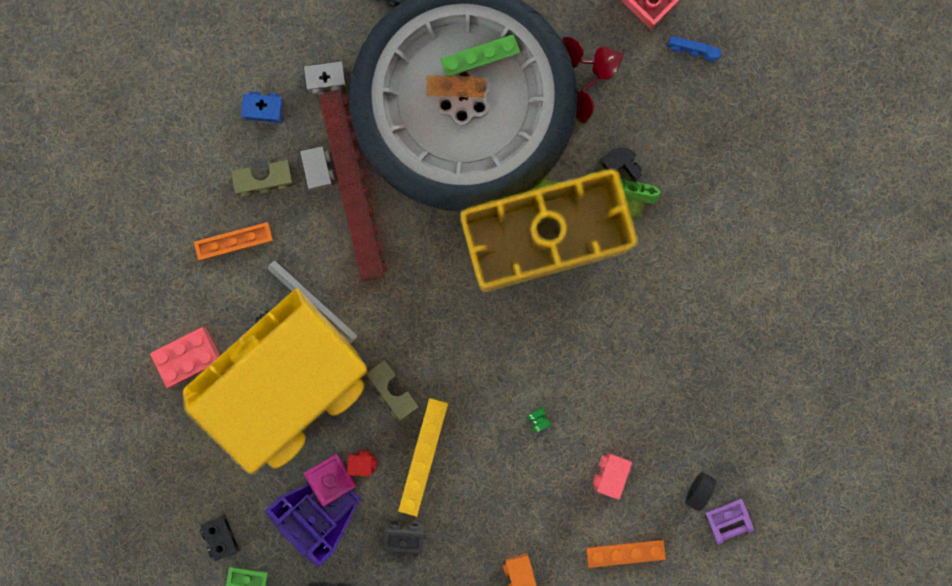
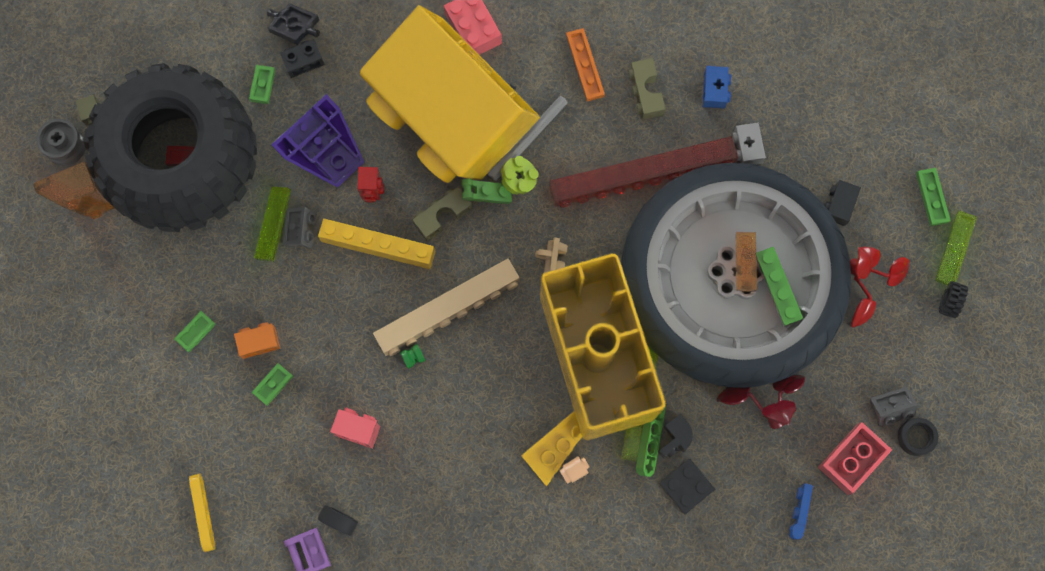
camera: 85 degrees right, 10 degrees down
(180, 547) = (293, 23): none -> black plate
(316, 168) = (658, 138): light grey brick -> none
(329, 480) = (353, 154): dark pink tile -> none
(354, 321) = (527, 171): none -> lime plate
(371, 343) = (485, 192): none -> bright green plate
(399, 564) = (272, 224): none -> clear neon green plate
(447, 280) = (550, 255): none -> tan hips
(489, 385) = (447, 307): none -> tan brick
(565, 559) = (272, 384): none -> bright green plate
(625, 553) = (277, 446): orange plate -> none
(631, 283) = (553, 448): none -> yellow wing
(652, 262) = (574, 469): none -> light nougat brick
(668, 155) = (687, 486): none -> black plate

